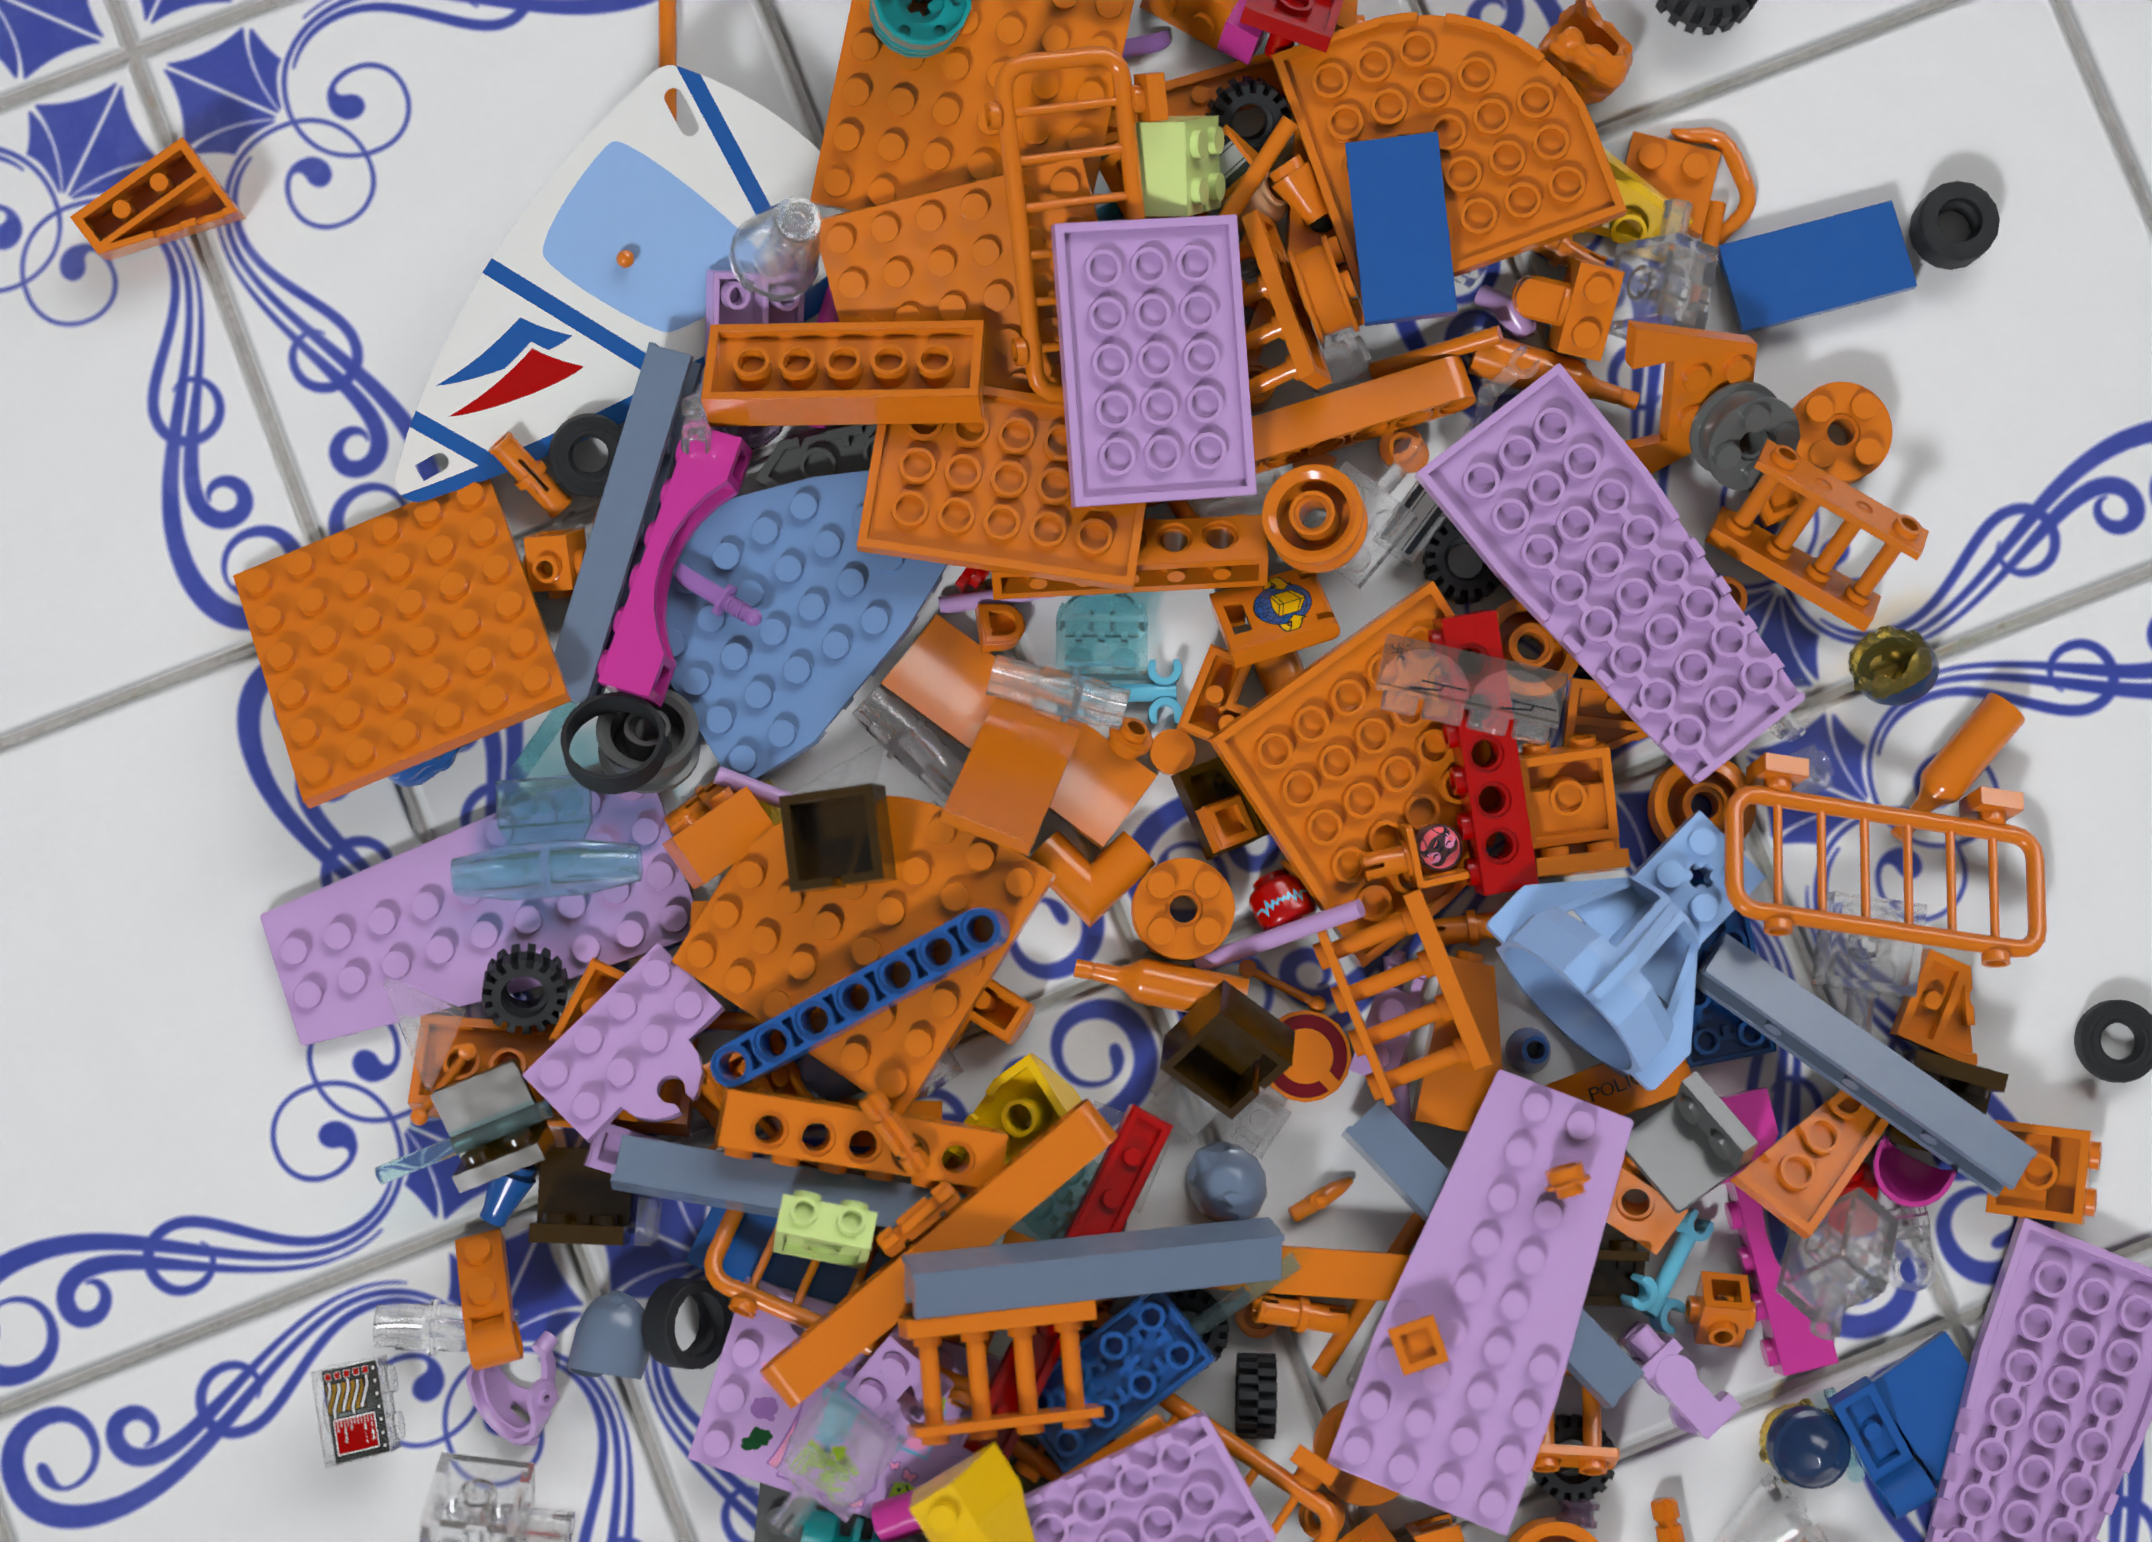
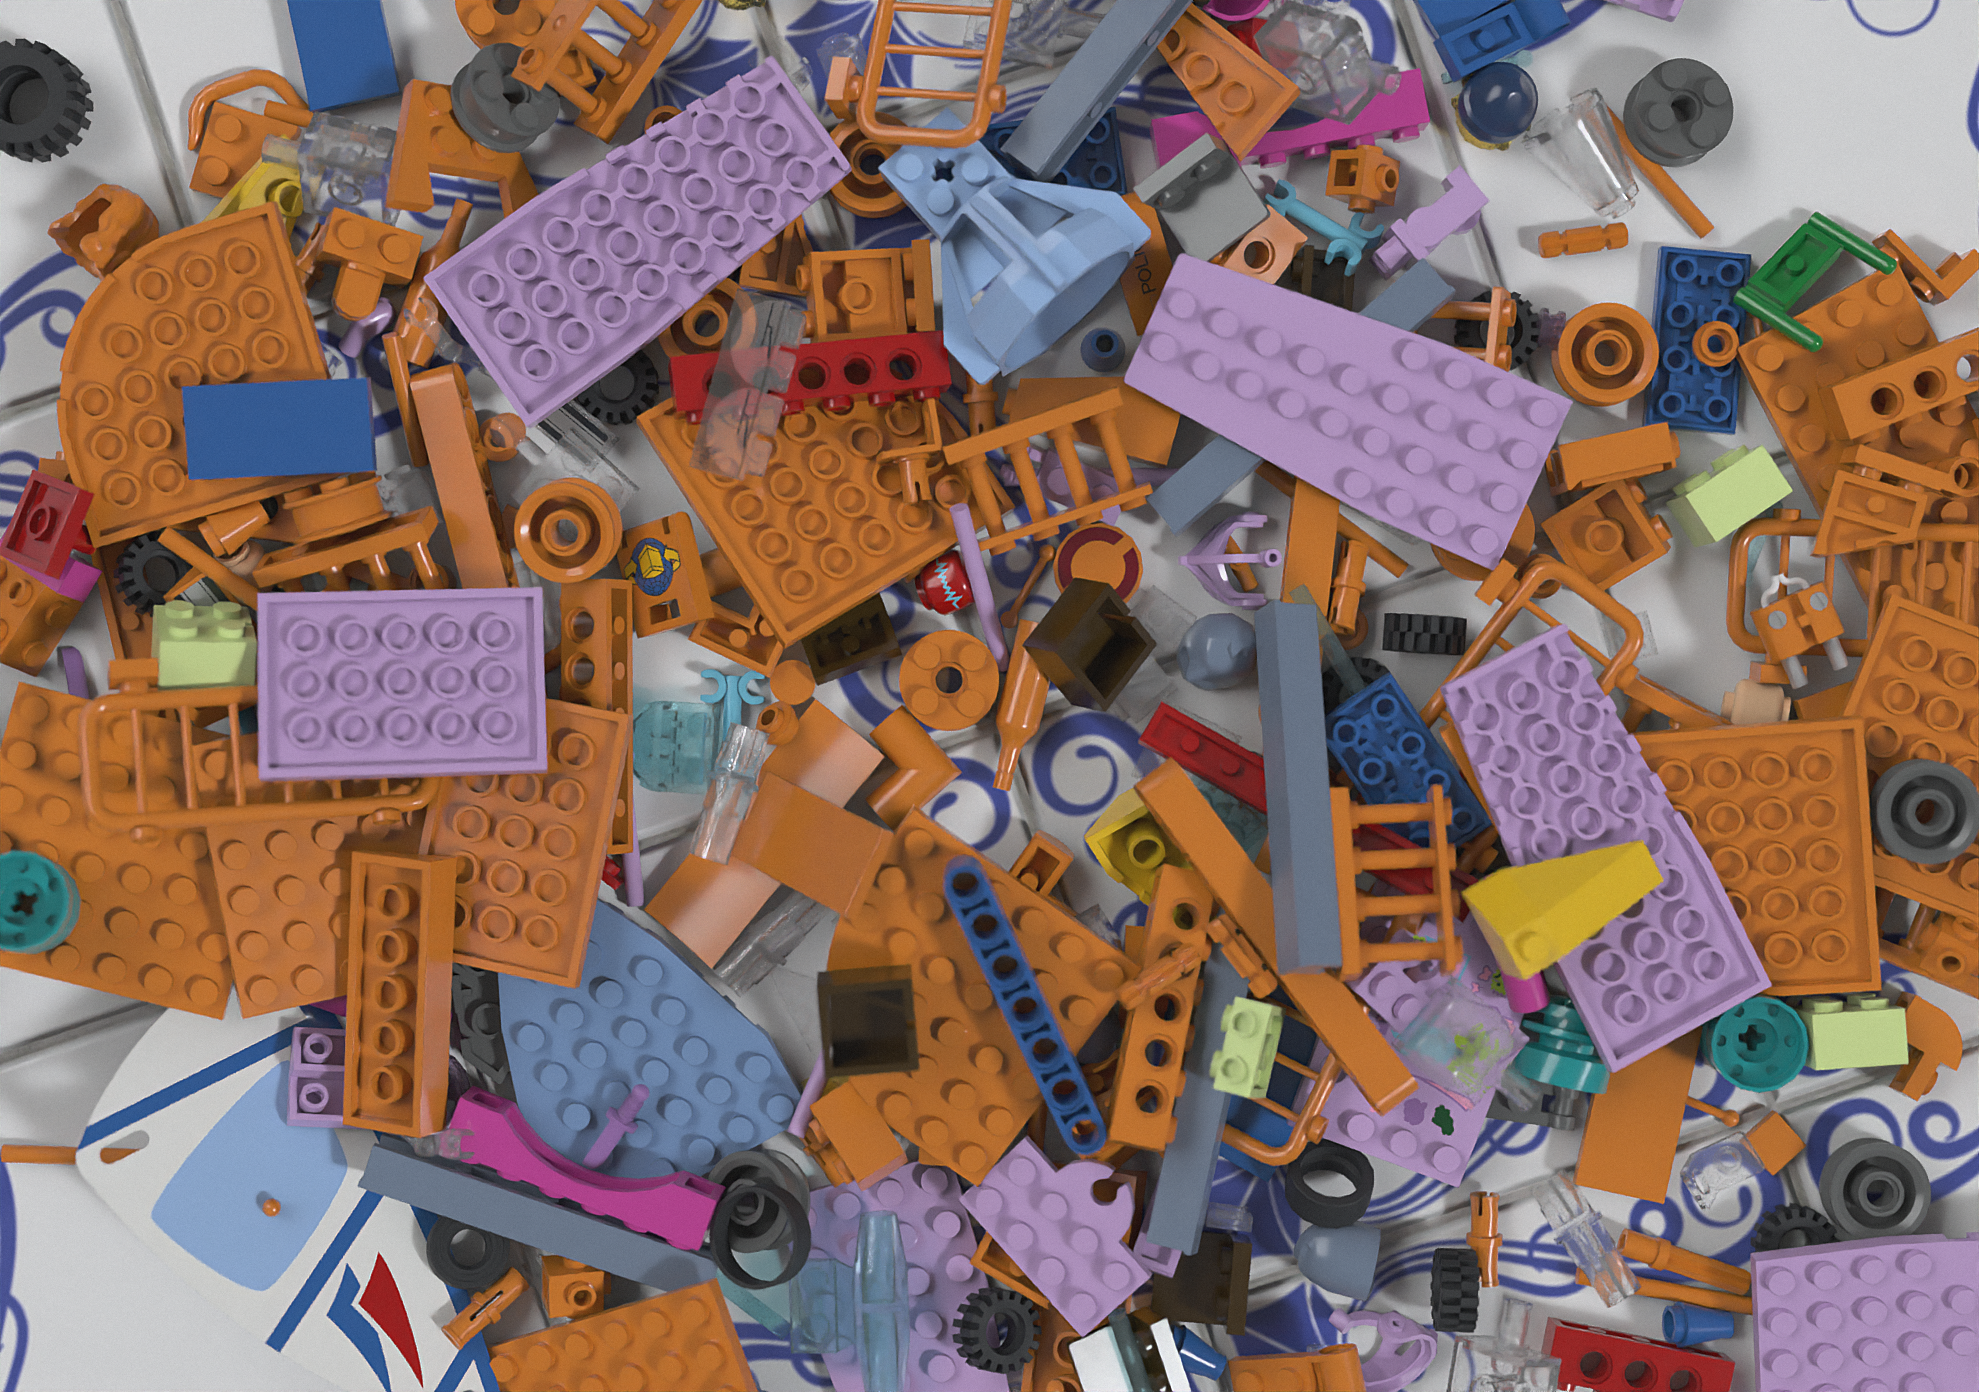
camera: 85 degrees left, 5 degrees up
(581, 1460) = (1454, 1290): none -> black tyre
(634, 1489) = (1485, 1236): none -> orange pin
(778, 250) = (271, 1053): clear cone -> none
(999, 626) = (660, 848): orange tile -> none
(1226, 823) = (866, 633): orange tile -> none
(1319, 1168) = (1208, 561): none -> lavender helmet
(1418, 1344) = (1387, 476): orange plate -> none
(1438, 847) = (900, 426): tile -> none
(1567, 1179) = (1235, 321): orange plate -> none

